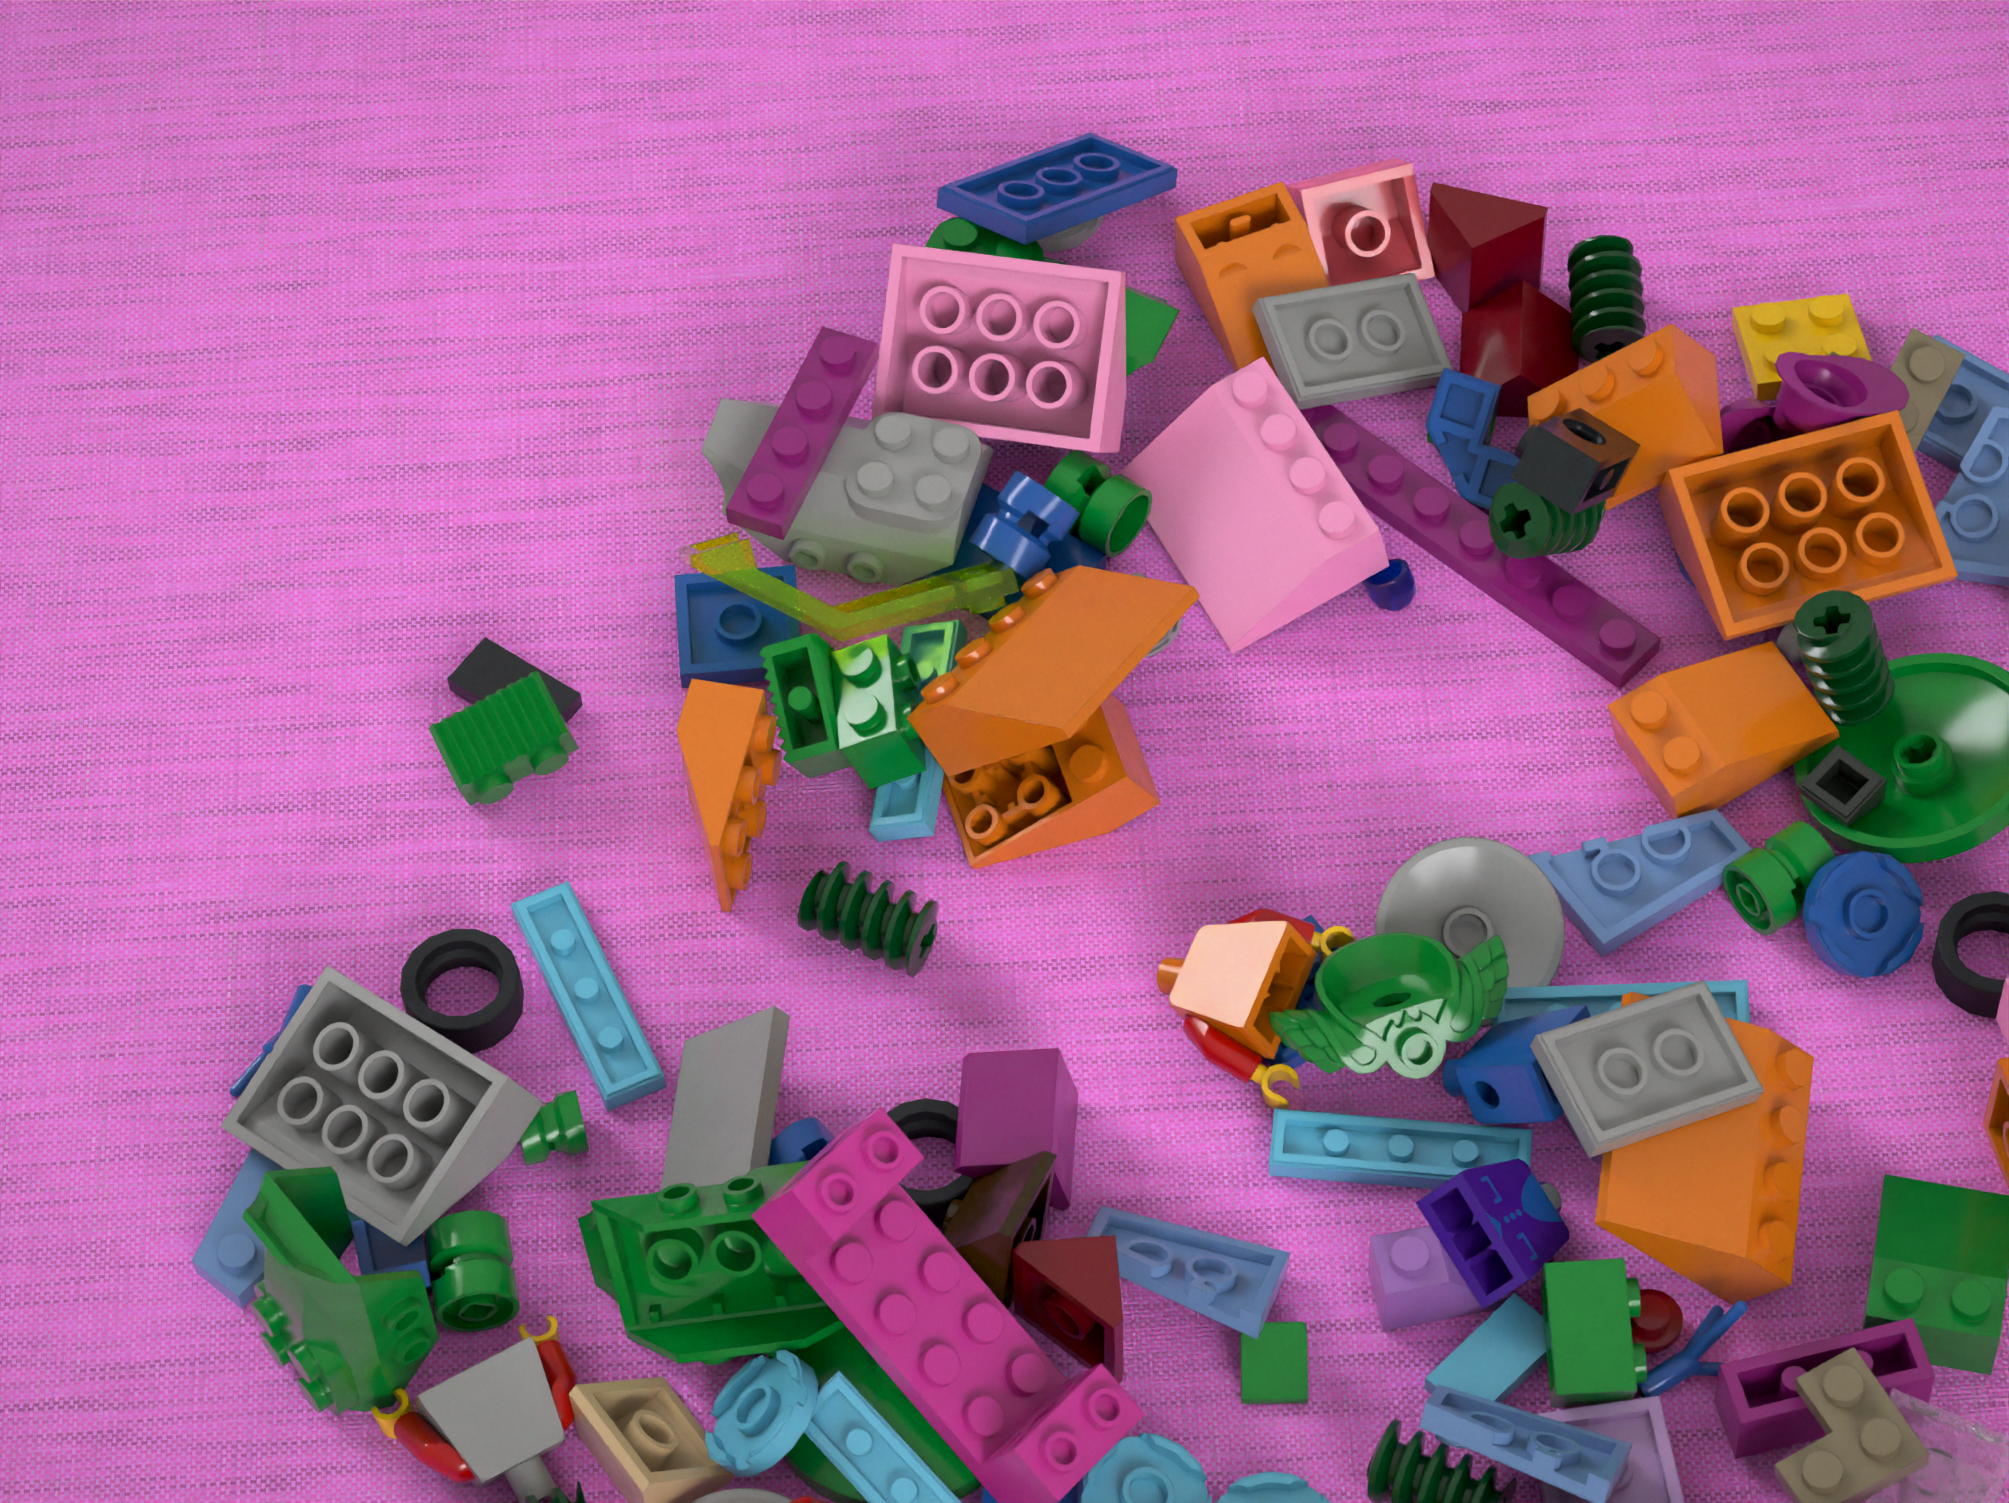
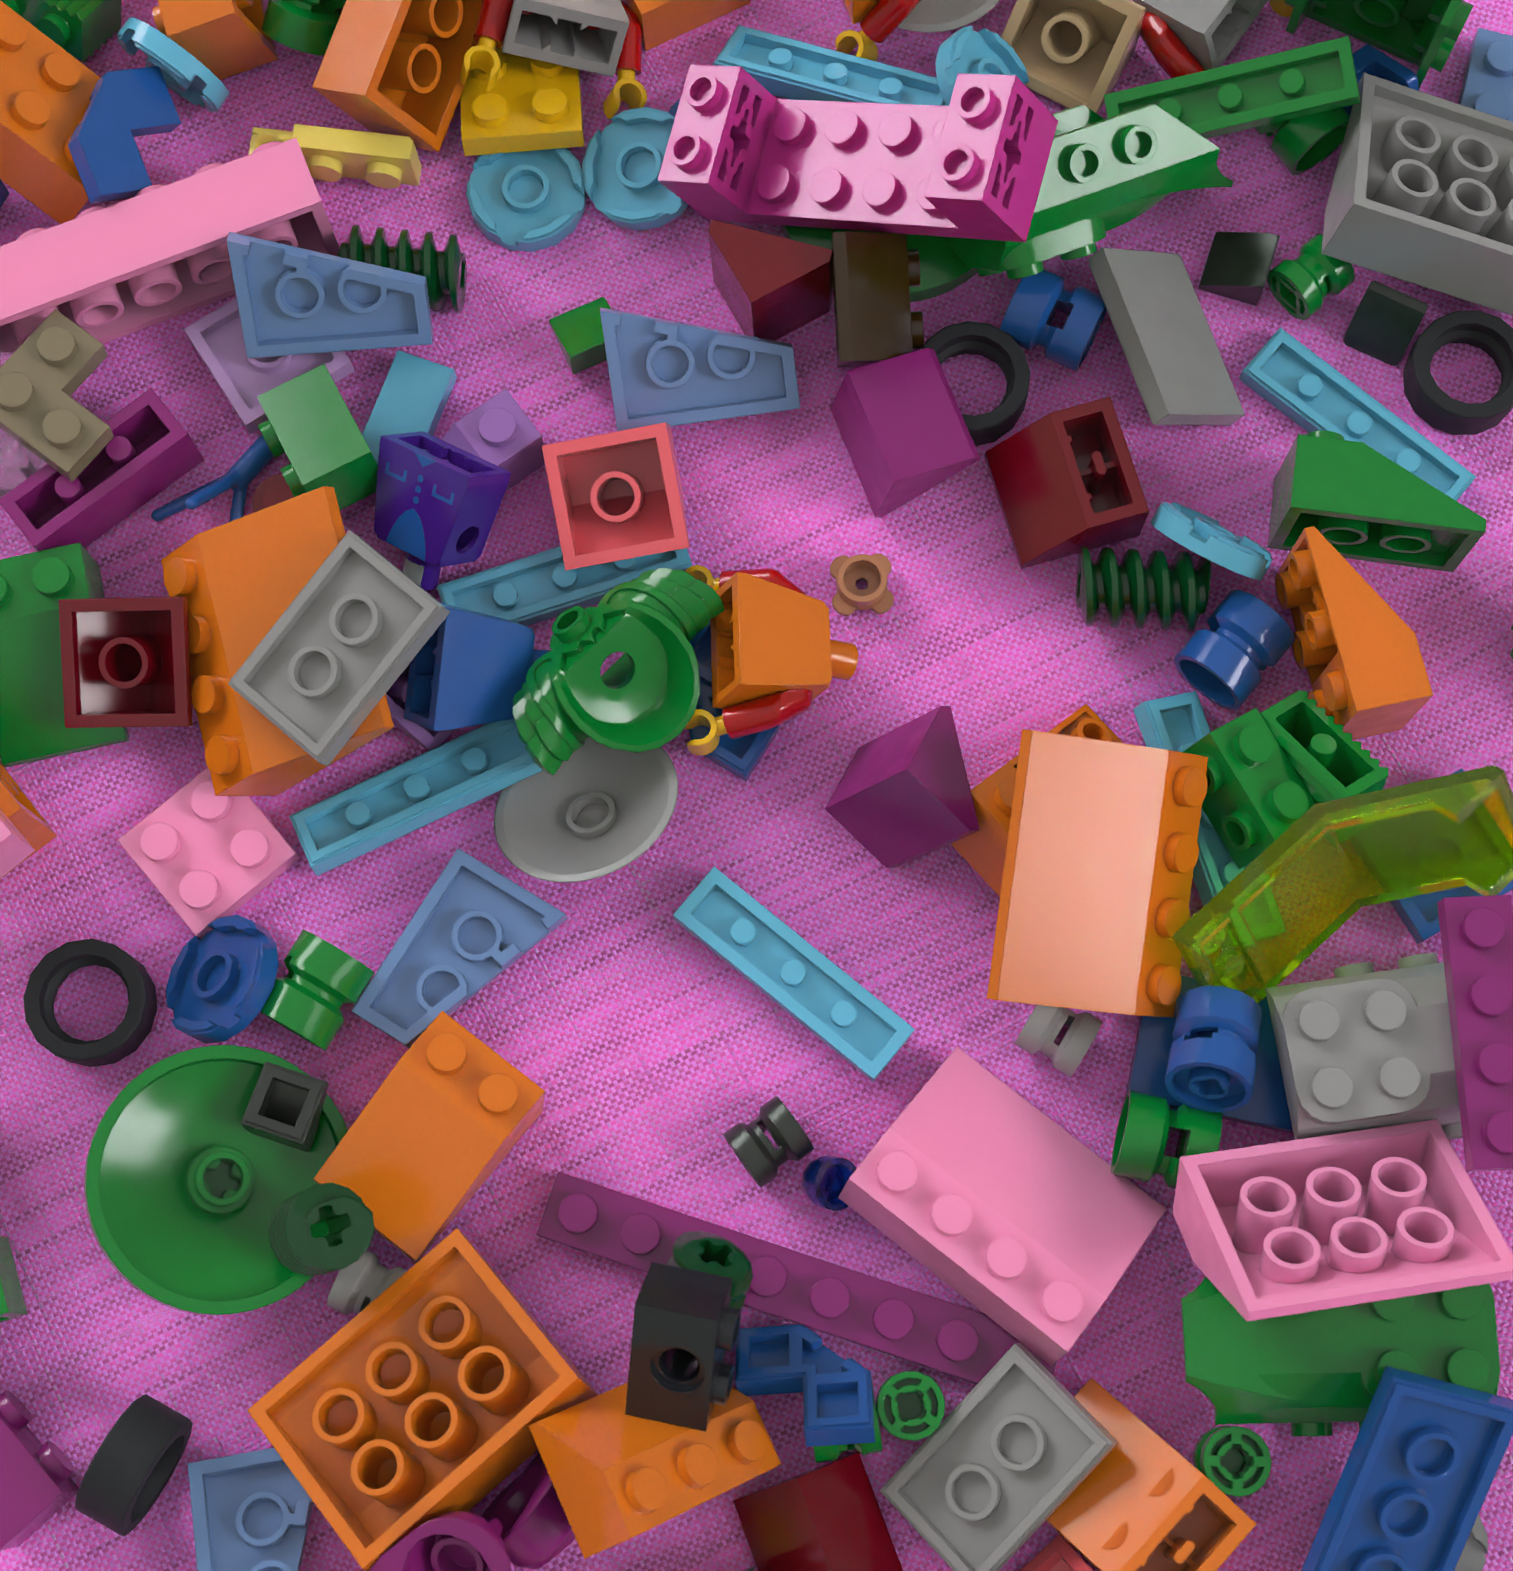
camera: 155 degrees right, 20 degrees up
(509, 1058) = (1384, 323): none -> pearl dark grey slope
(539, 1274) = (1252, 90): none -> green plate
(605, 1168) = (1239, 265): none -> pearl dark grey slope
(651, 890) = (1367, 506): none -> green slope
(791, 916) = (1208, 539): none -> medium azure tile
(819, 835) = (1241, 641): none -> blue wheel
(889, 1025) = (1067, 484): none -> dark red slope
(1127, 1019) = (864, 567): none -> nougat plate
(1170, 277) = (1219, 1459): none -> green wheel
(1173, 830) = (907, 791): none -> magenta slope
(1317, 1181) = (616, 495): none -> coral slope
(1346, 746) = (793, 974): none -> medium azure plate
(1401, 410) = (900, 1403): none -> green wheel
(1429, 628) = (756, 1150): none -> pearl dark grey wheel
(1852, 1192) = (125, 662): none -> dark red slope
(1854, 1044) = (207, 852): none -> bright pink plate

